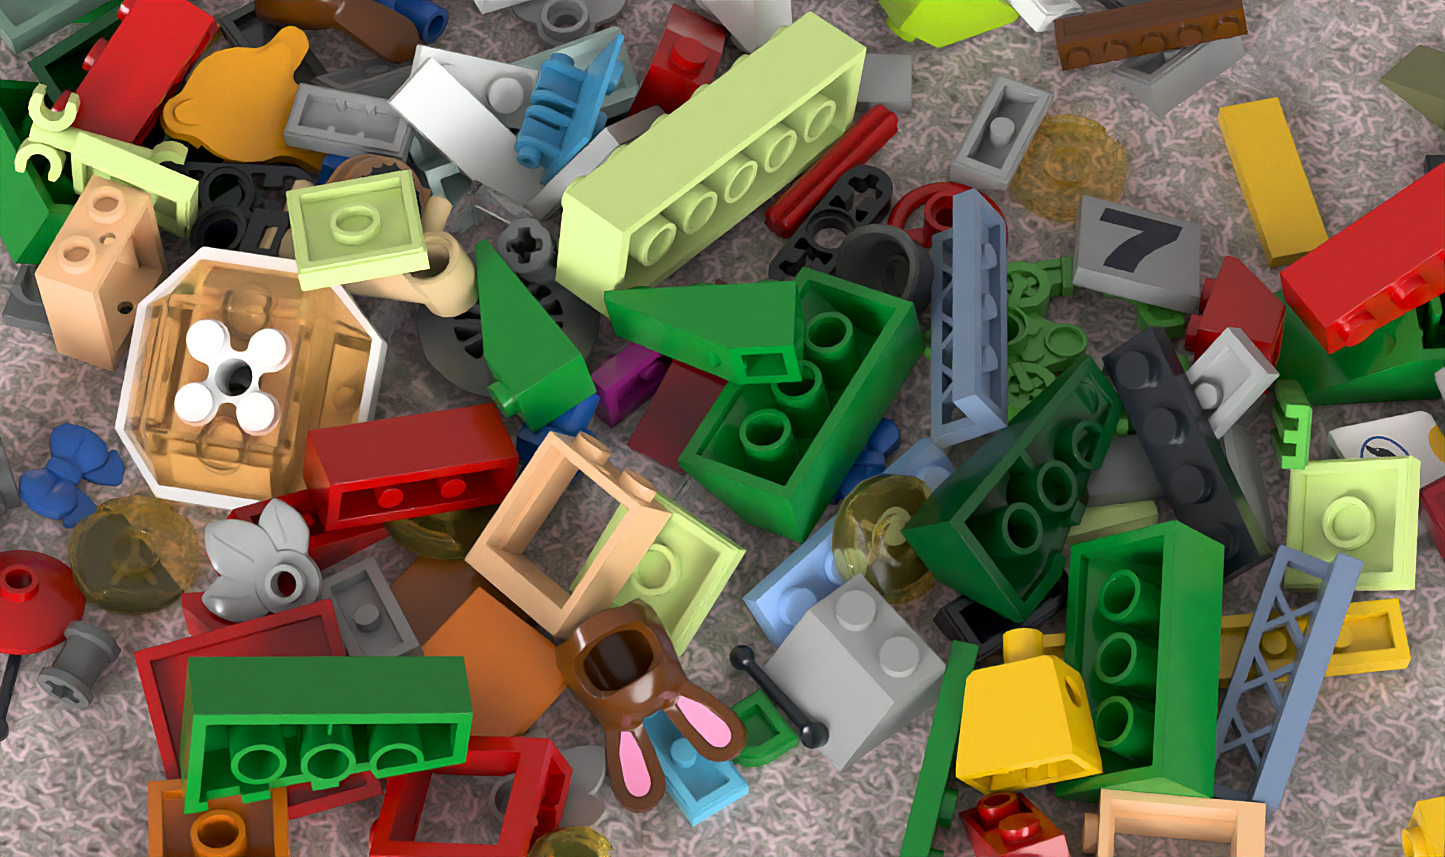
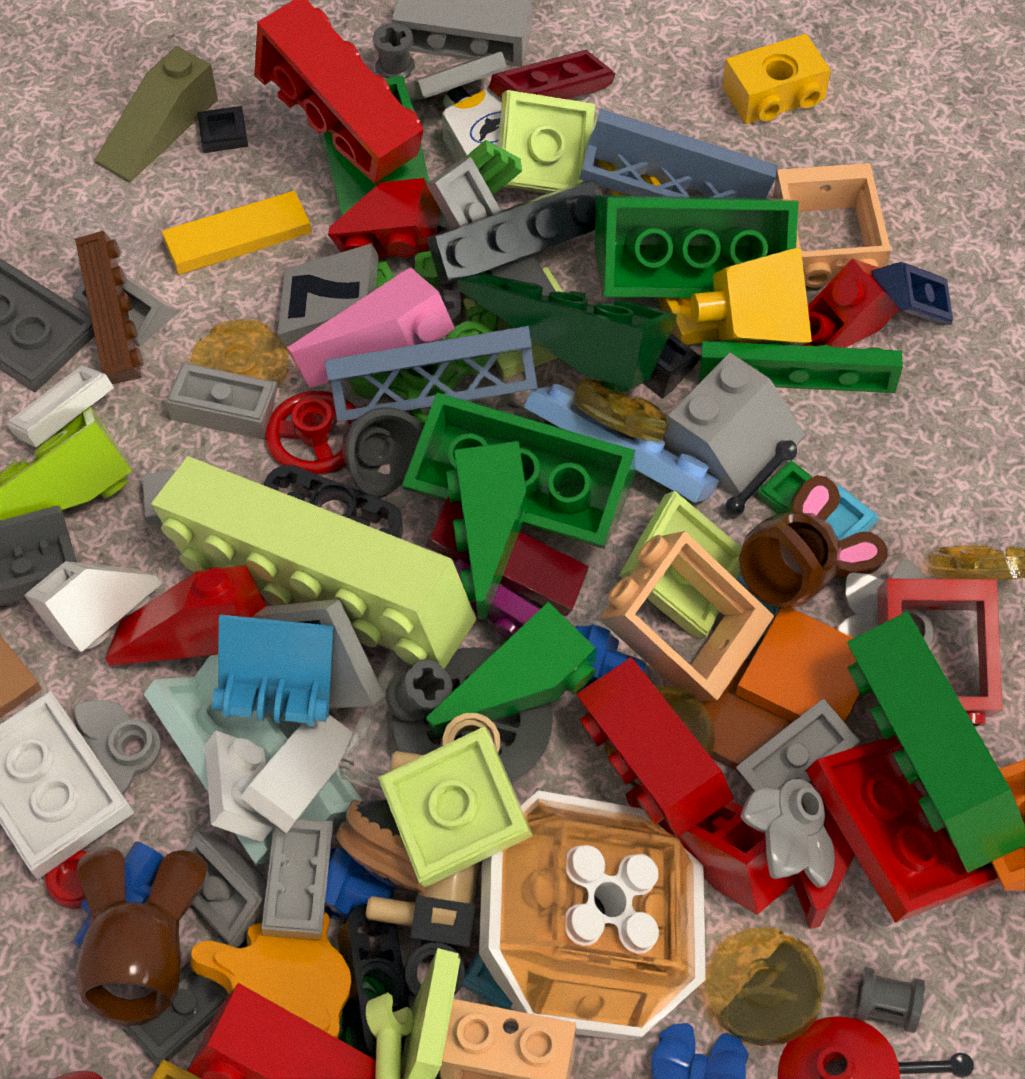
camera: 100 degrees left, 0 degrees up
(1051, 287) = (391, 317): none -> bright pink slope

